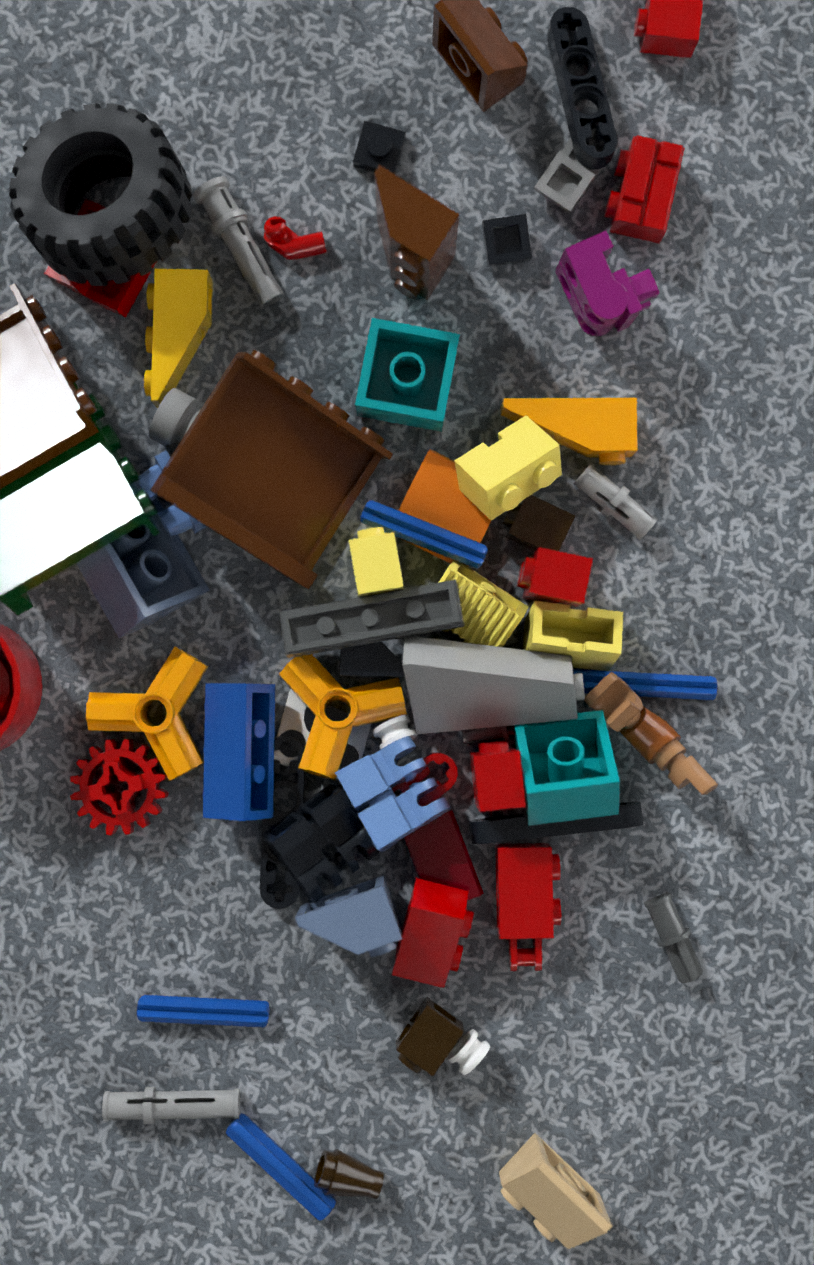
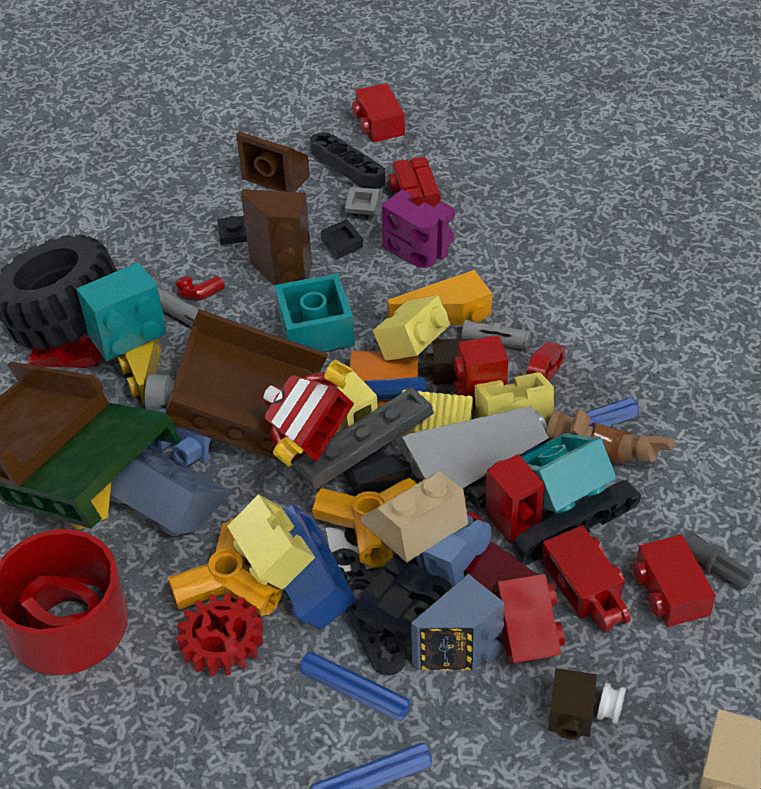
camera: 20 degrees left, 40 degrees down
(157, 295) = (122, 311): none -> teal brick
(201, 724) = (266, 541): none -> light yellow brick
(231, 905) = (355, 686): none -> blue axle
(303, 582) = (307, 412): none -> torso
(368, 768) = (419, 516): none -> tan slope
(612, 947) = (674, 581): none -> red brick
(645, 585) = (547, 360): none -> red beam

